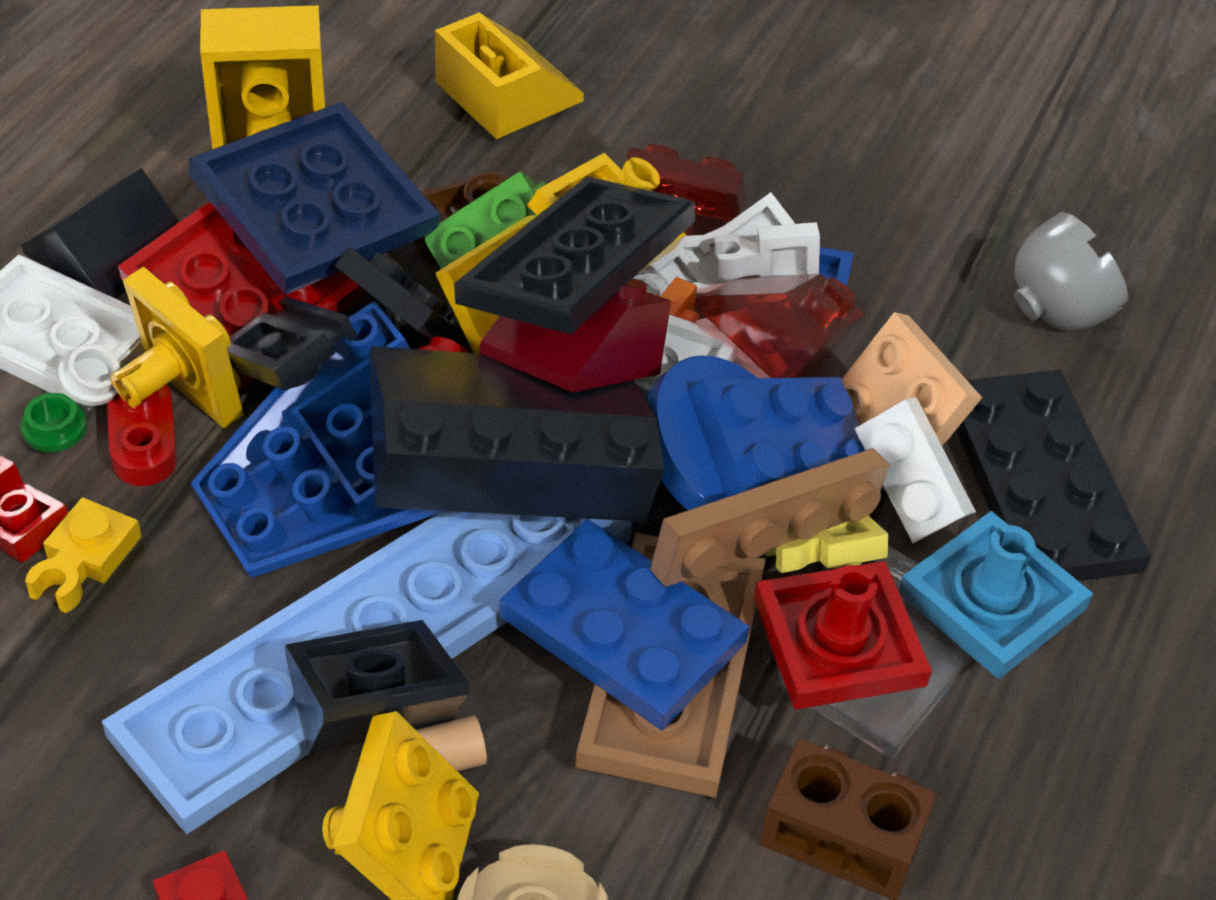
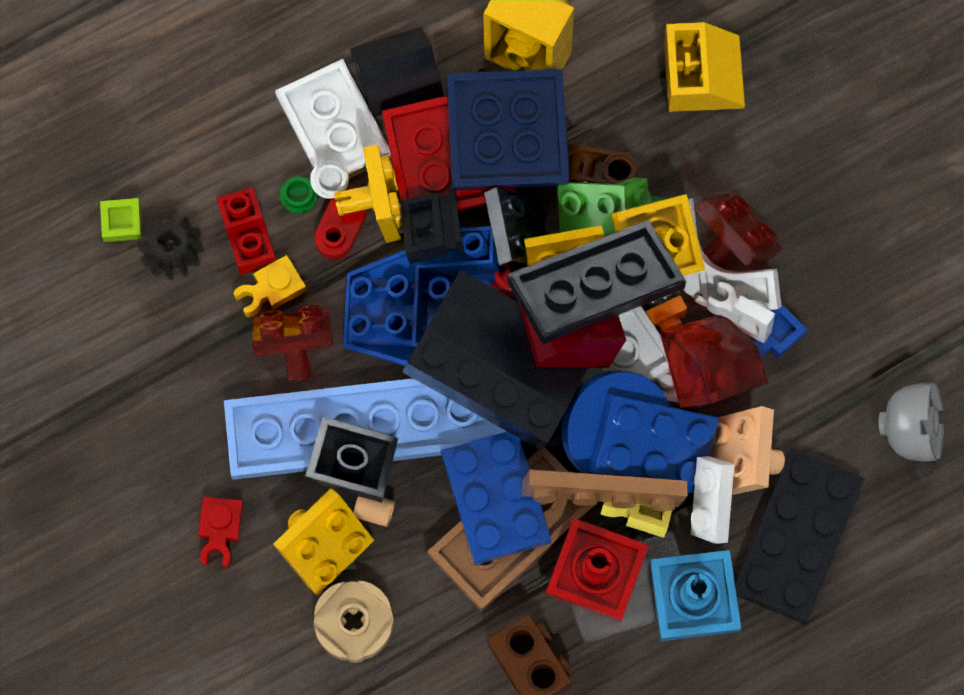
camera: 40 degrees right, 25 degrees up
(165, 576) = (293, 335): none -> clear red plate

